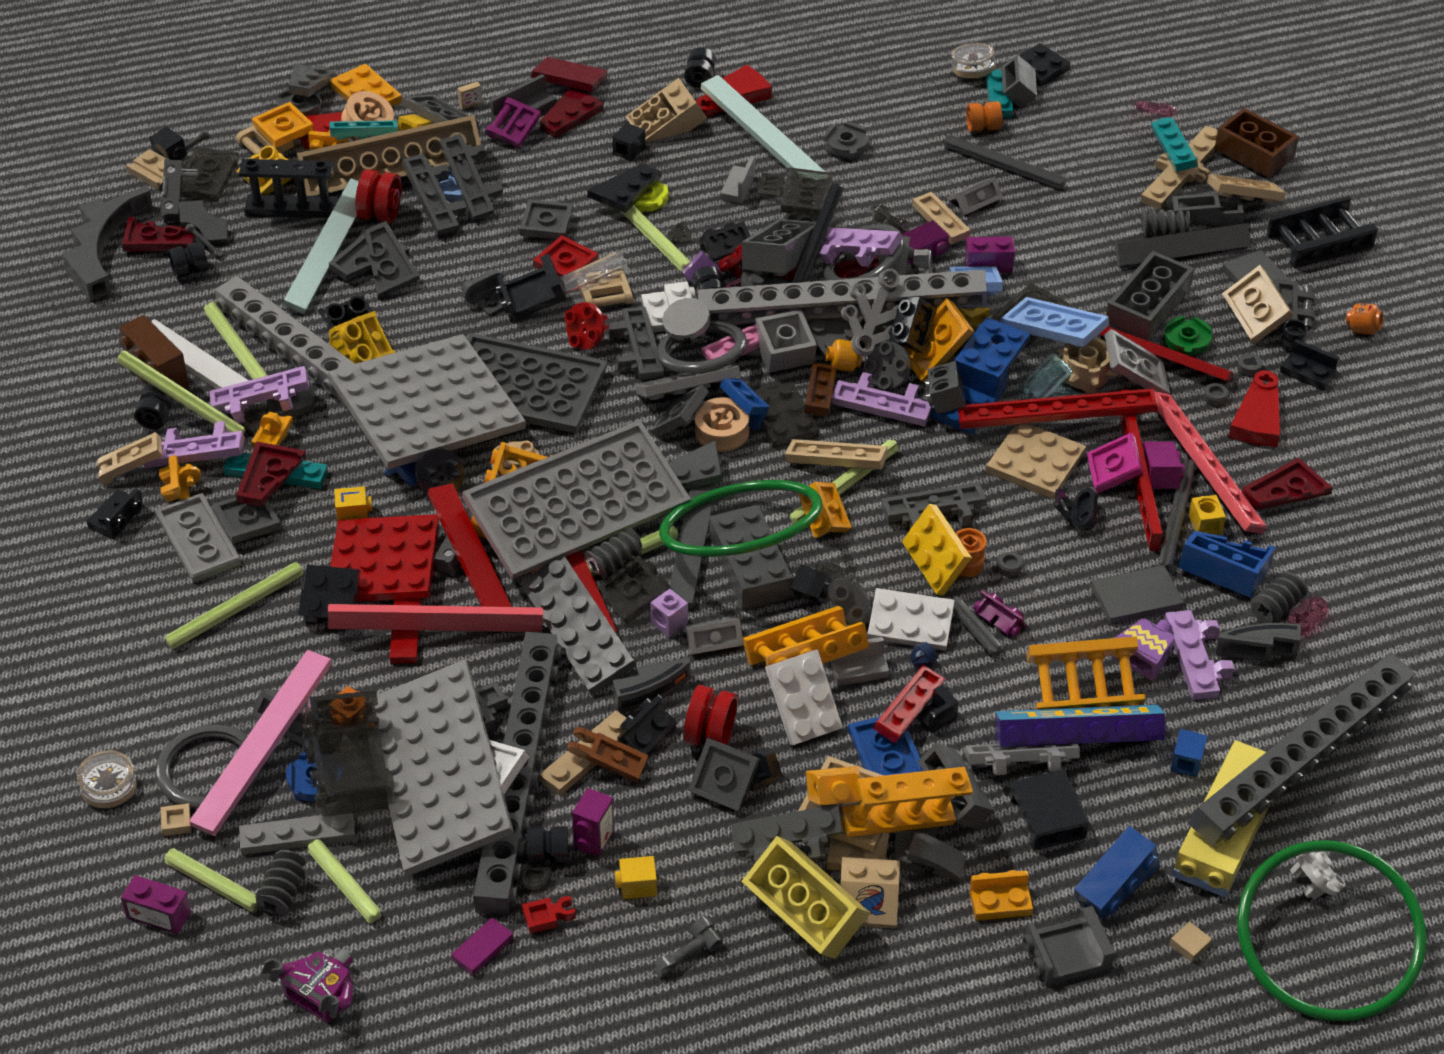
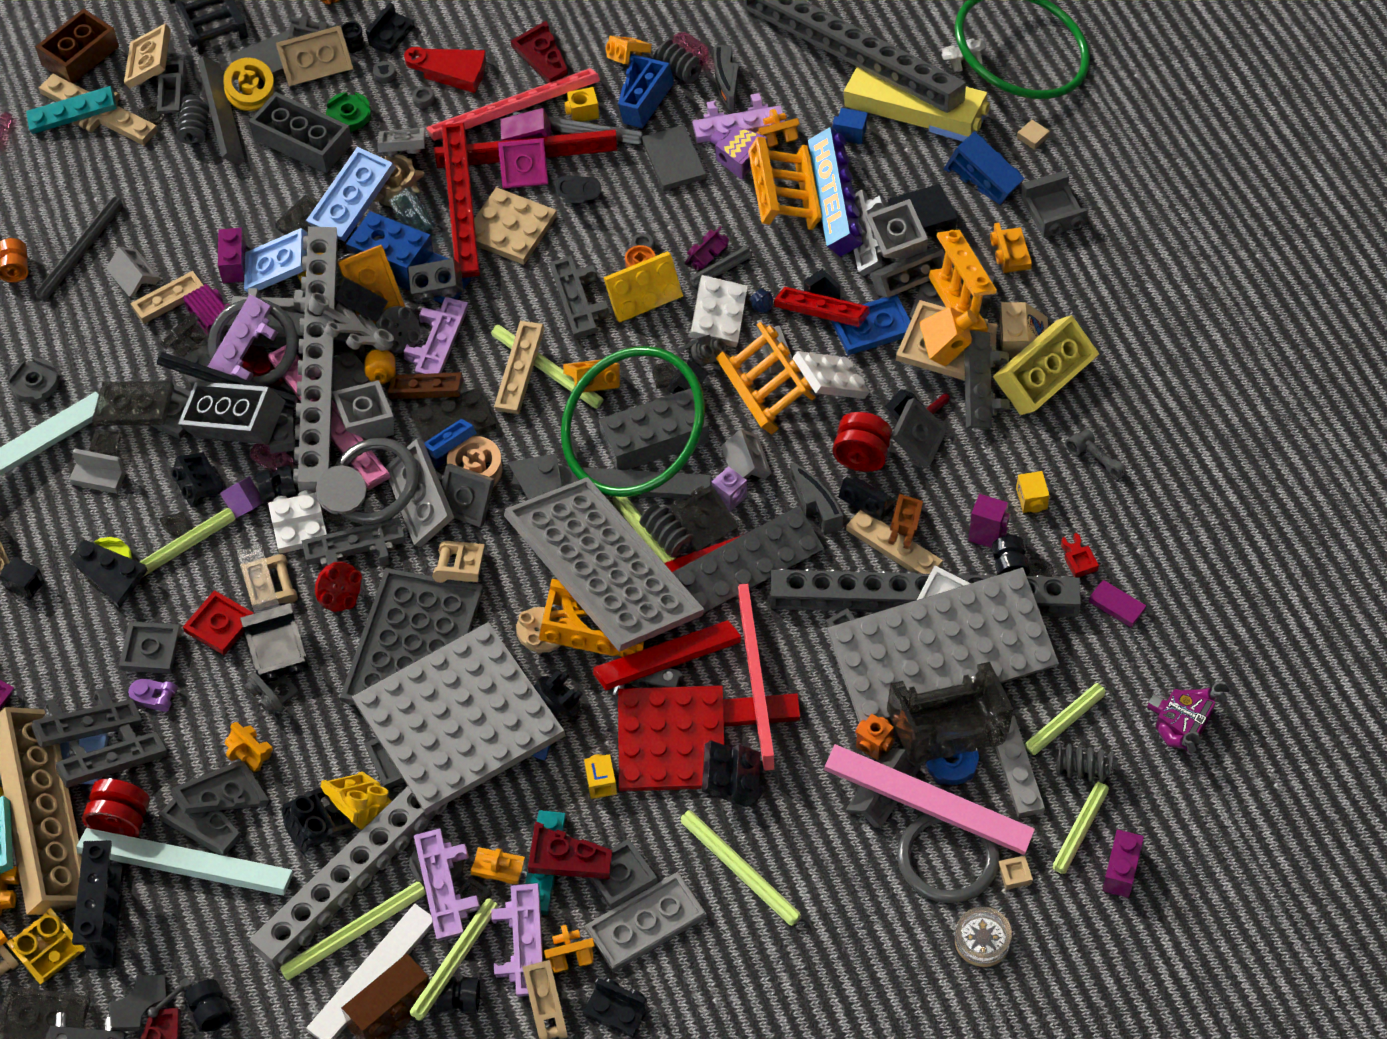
camera: 90 degrees left, 10 degrees up
(423, 281) = (243, 746): none -> light orange hips
(500, 224) = (145, 691): none -> medium lavender plate
(604, 410) = (466, 565): none -> tan plate
(732, 262) = (221, 454): red plate -> none
(768, 802) = (938, 403): none -> dark red piece
(997, 759) = (898, 231): none -> light grey slope
(1176, 356) = (376, 122): red tile -> none
(1186, 676) = (788, 128): none -> light orange hips
(1222, 250) = (245, 72): none -> yellow wheel
(1293, 549) = (621, 48): none -> light orange bracket

